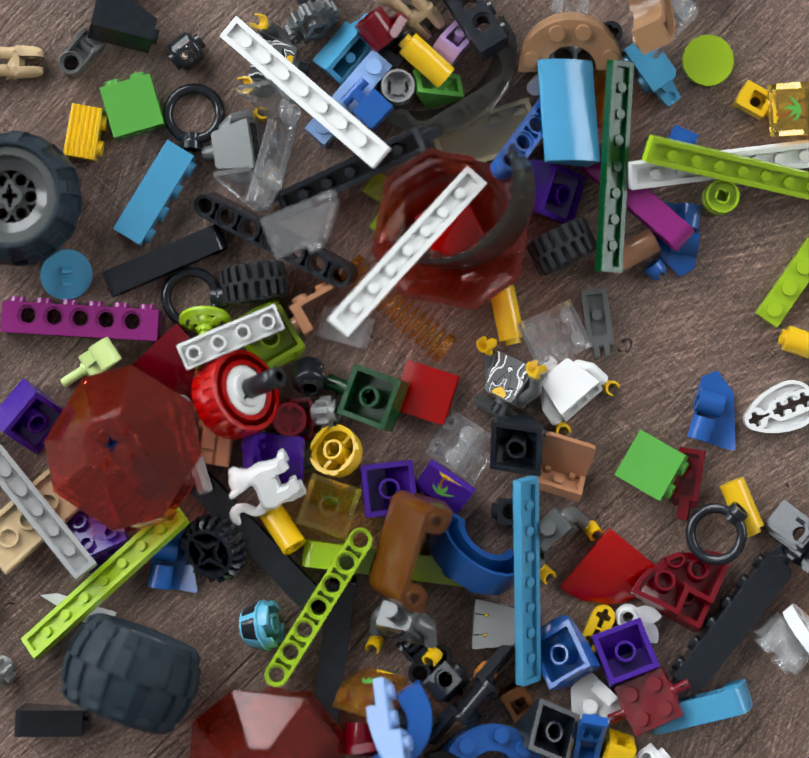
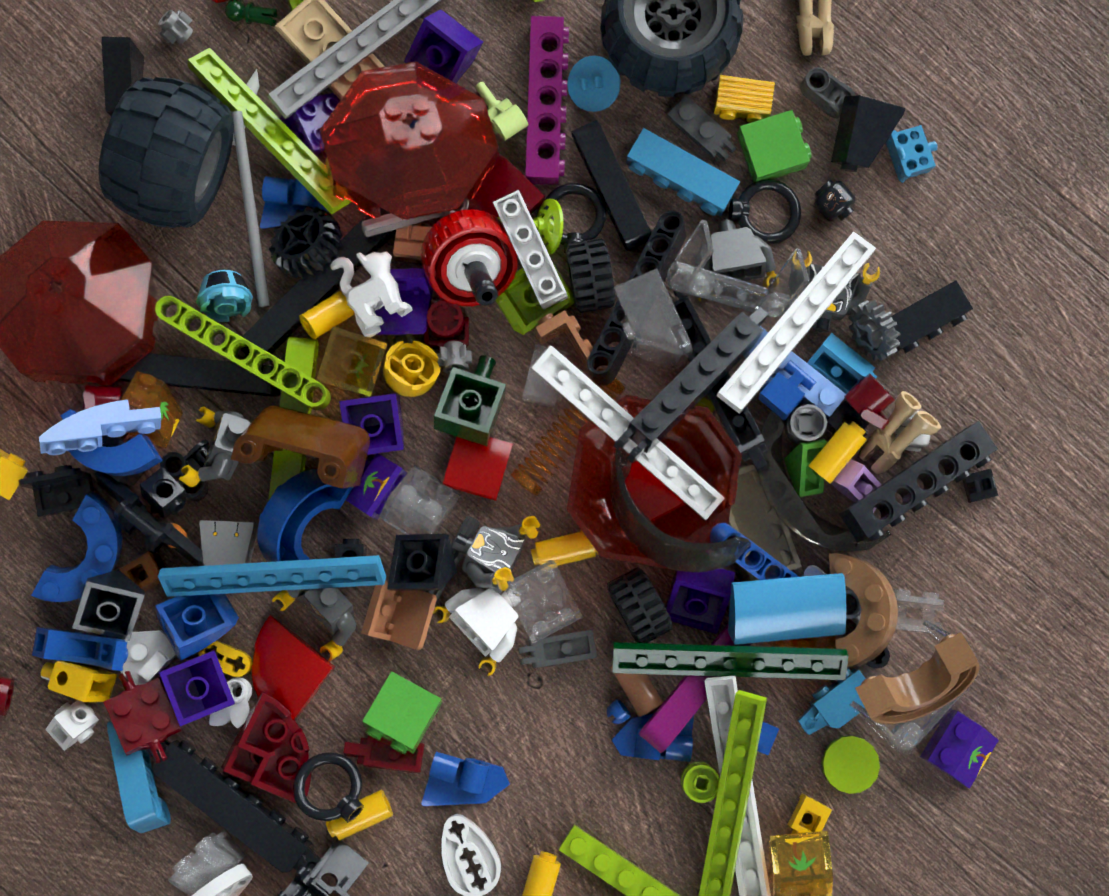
camera: 85 degrees right, 5 degrees down
(111, 174) = (701, 128): none -> dark grey hinge
(181, 600) = (250, 209): none -> light grey piece
(308, 375) = (492, 337): black head -> none
(363, 189) = (692, 383): none -> black hinge

